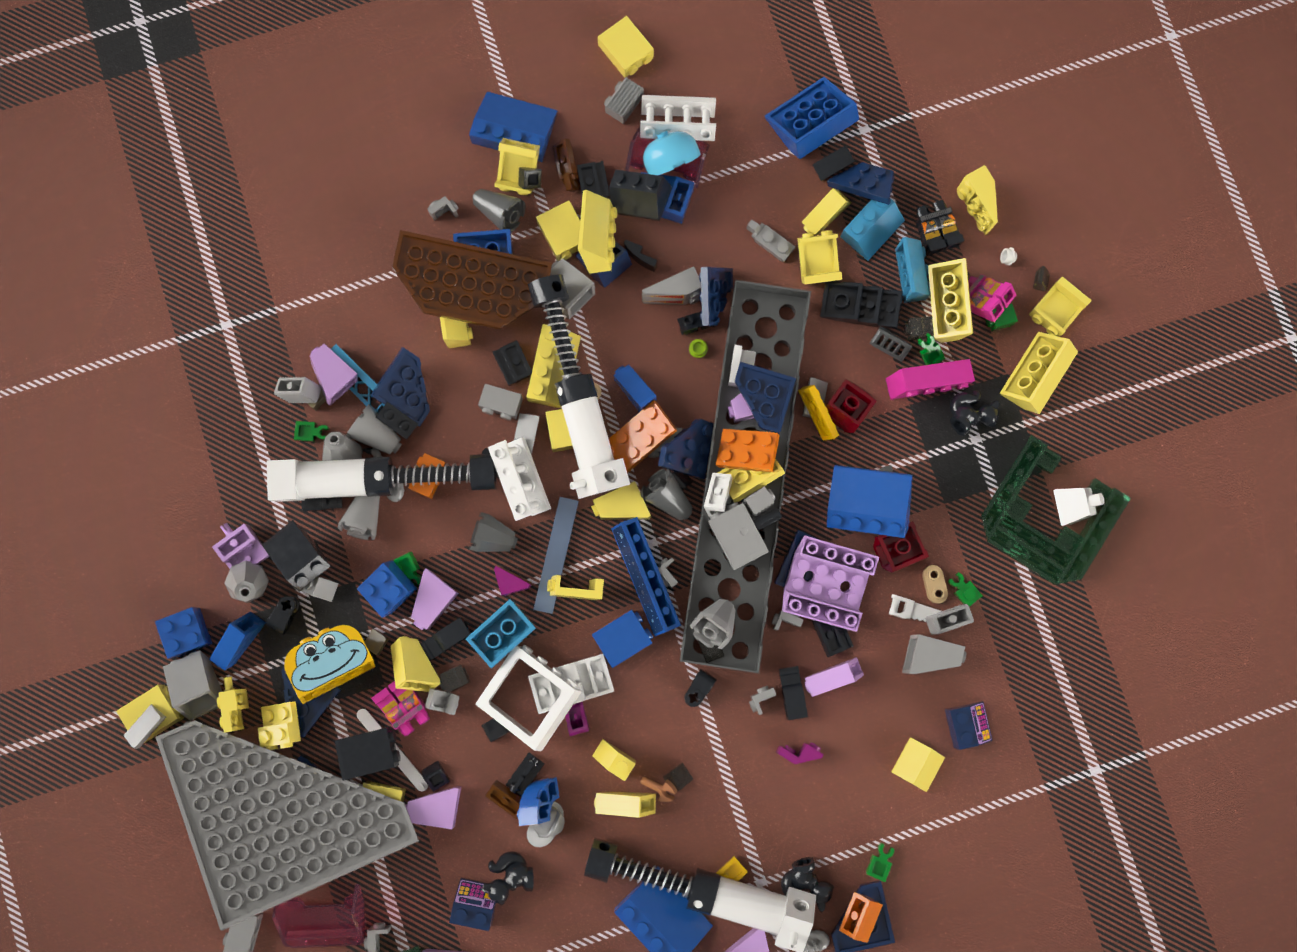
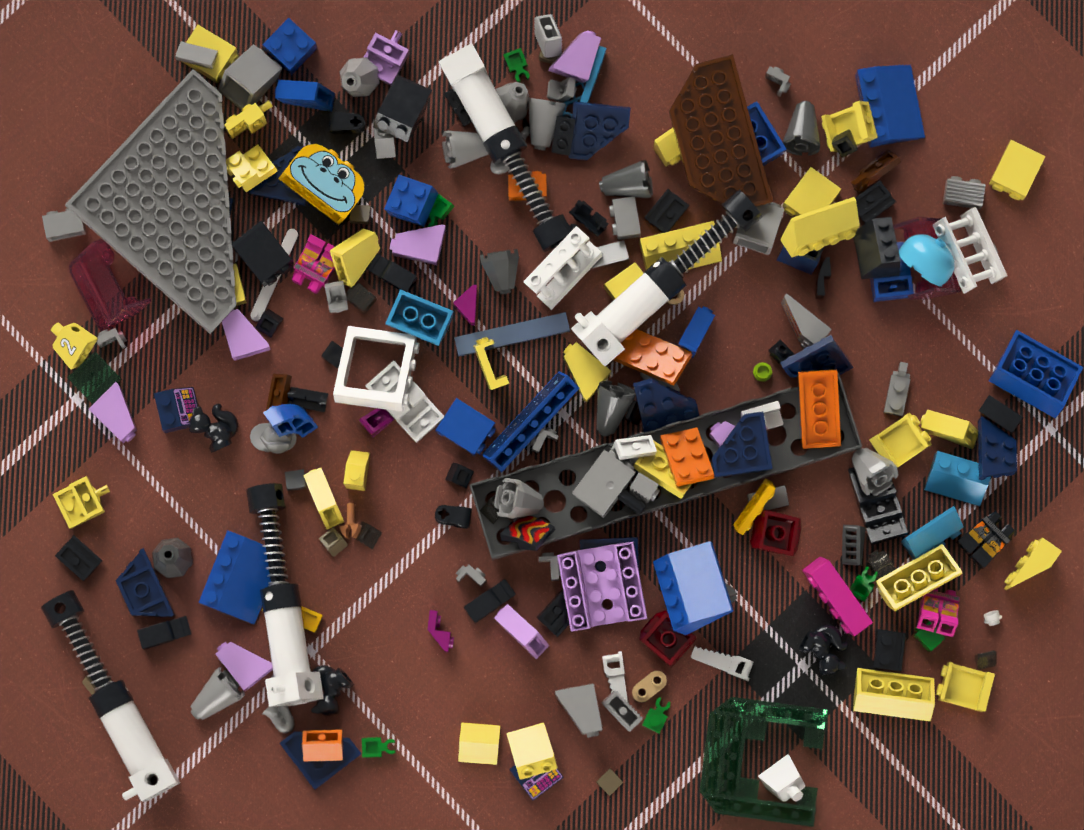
camera: 65 degrees right, 0 degrees up
(354, 403) = (562, 90): none -> light grey bracket
(468, 383) = (628, 182): none -> dark grey cone
(476, 438) = (582, 213): none -> black hinge
(595, 822) = (295, 480): none -> dark grey slope
(662, 665) = (459, 475): none -> black slope
(669, 813) = (333, 541): none -> dark tan slope
(750, 628) = (528, 532): none -> slope
(759, 312) = (819, 409): none -> orange plate
(835, 293) = (873, 471): none -> light grey cone
(942, 507) = (723, 662): none -> white piece
(952, 720) = (532, 751): none -> light yellow panel
(996, 358) = (889, 650): none -> black plate
(1005, 662) = (609, 782): none -> dark tan slope

